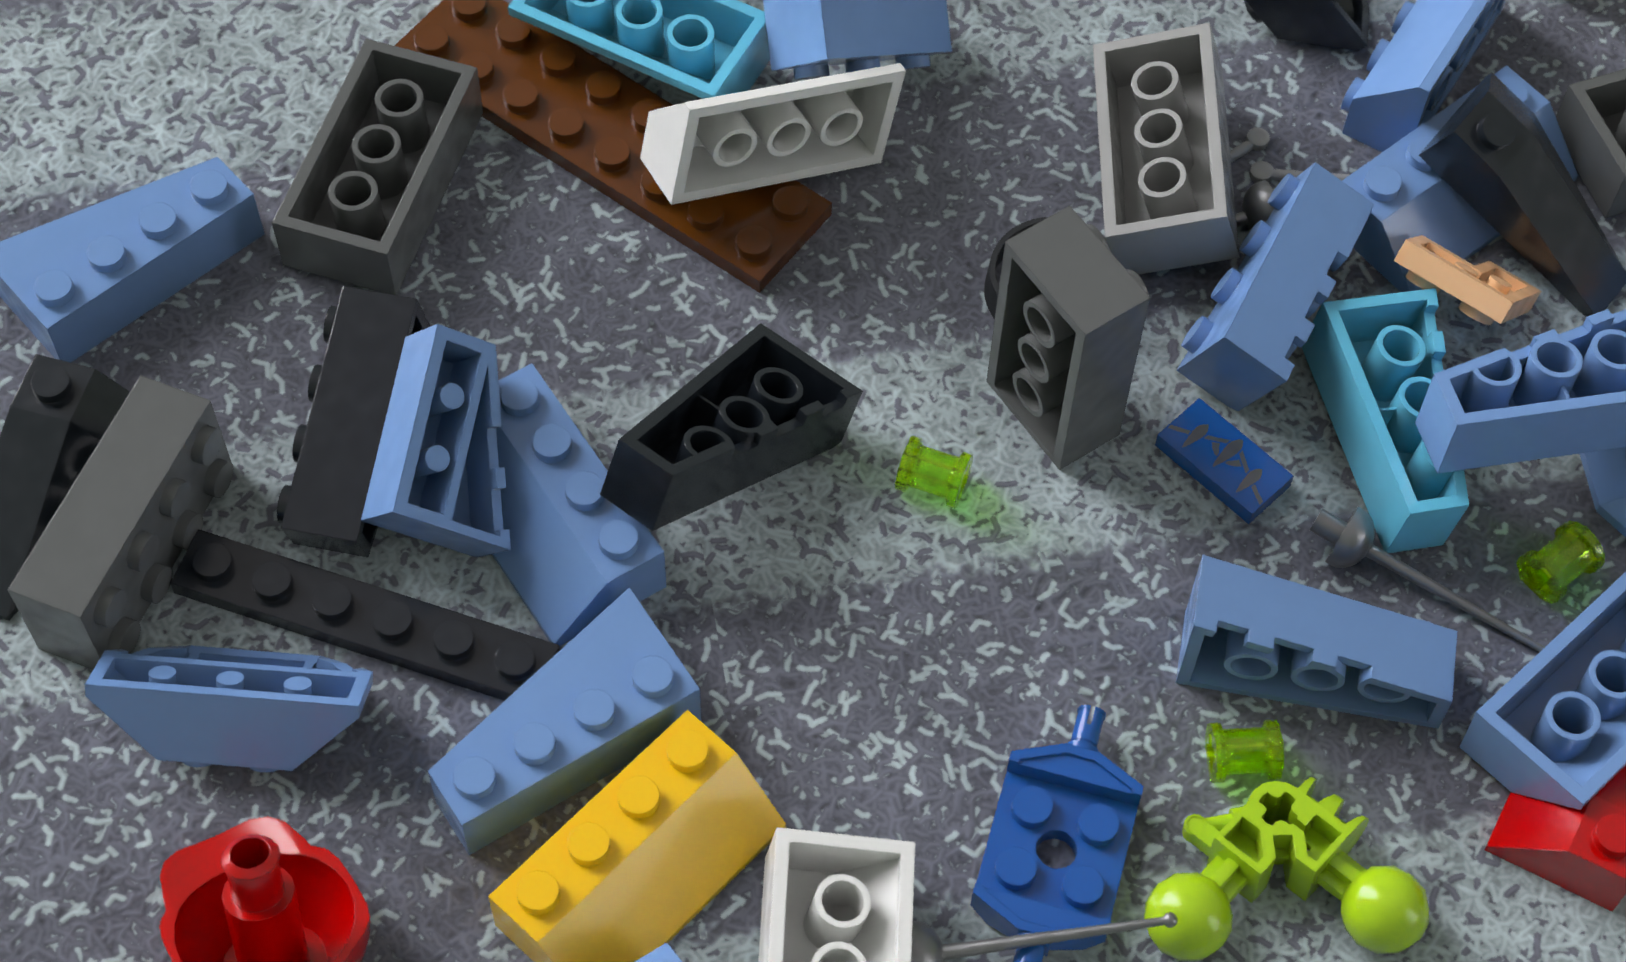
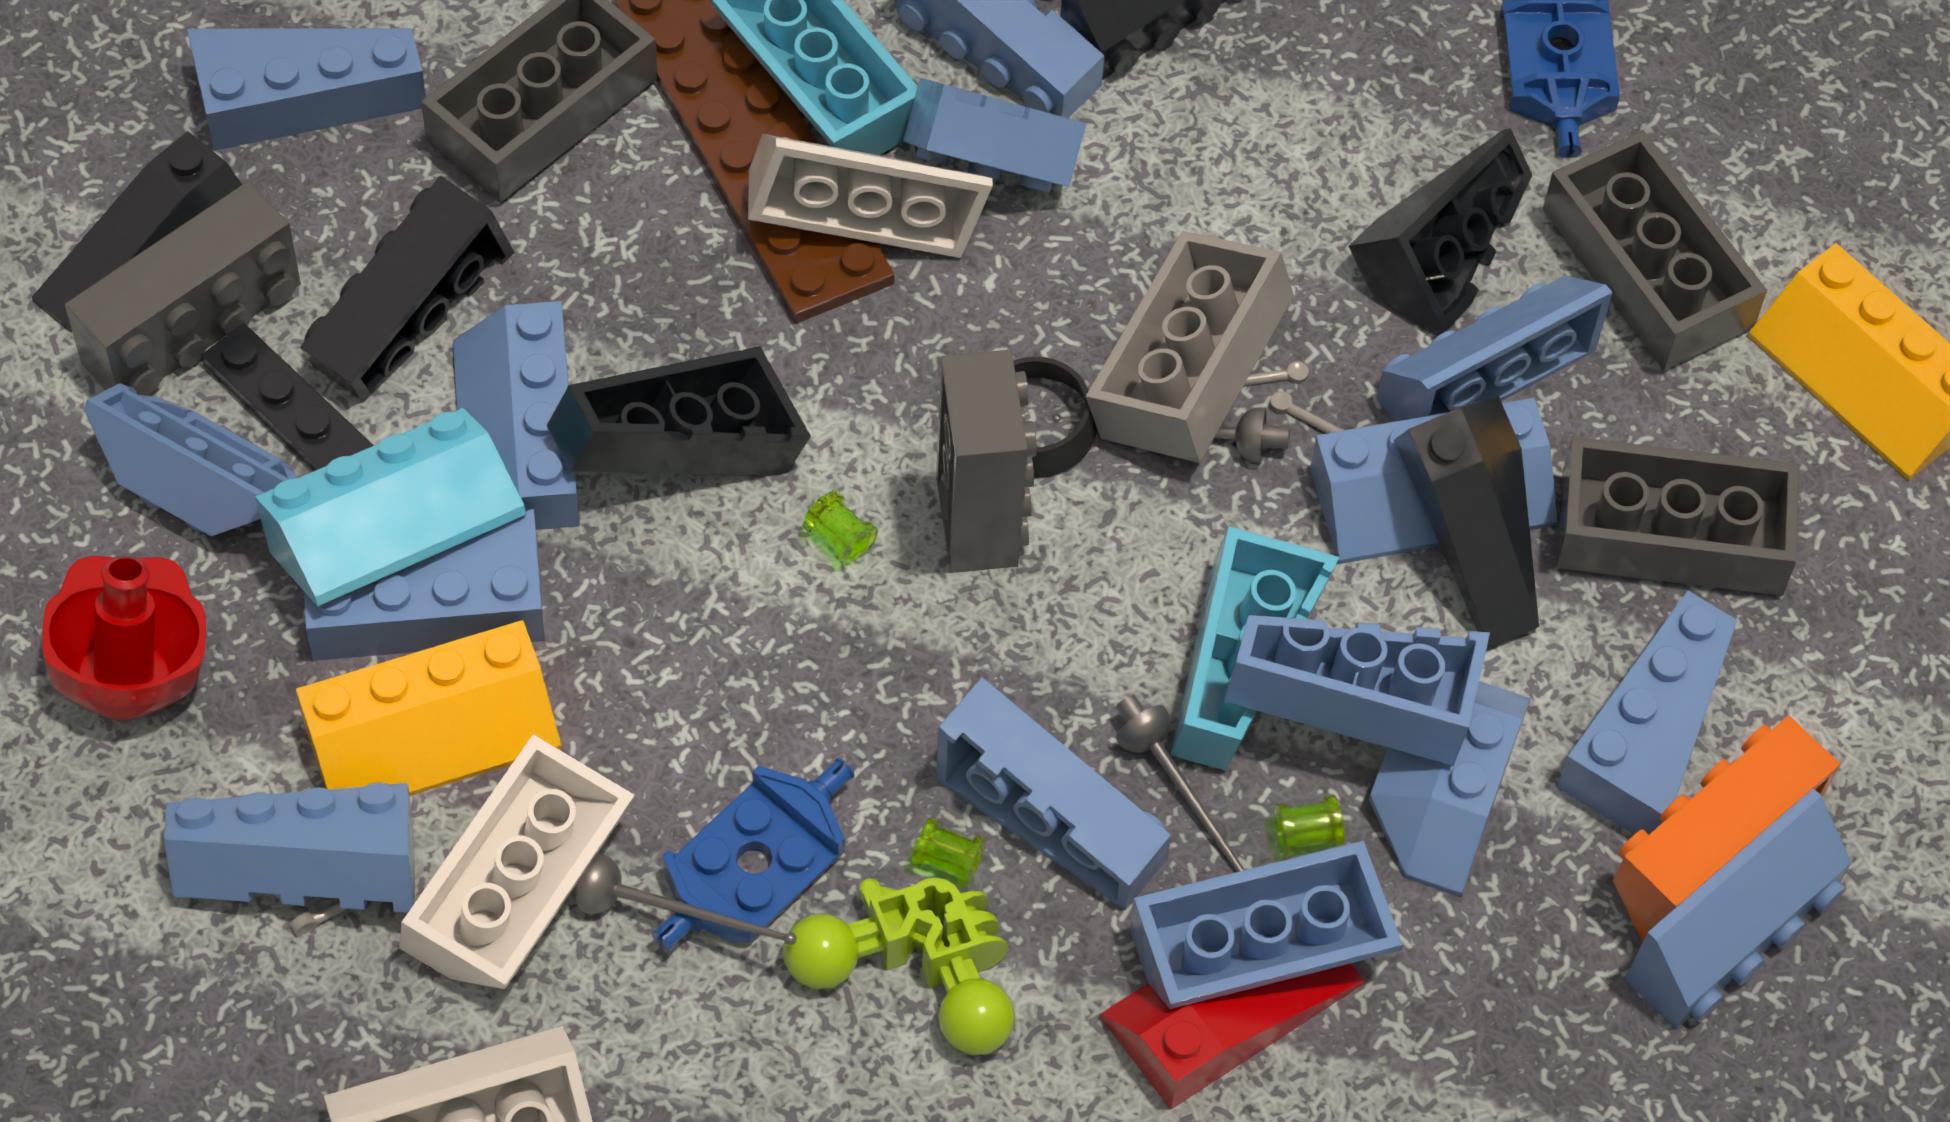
camera: 25 degrees right, 0 degrees up
(439, 446) = (448, 335): medium blue wedge -> none
(481, 655) = (388, 506): none -> medium azure slope
(1224, 460) = (1087, 624): blue tile -> none
(1277, 287) = (1208, 497): medium blue wedge -> none
(1485, 289) = (1379, 577): light nougat plate -> none

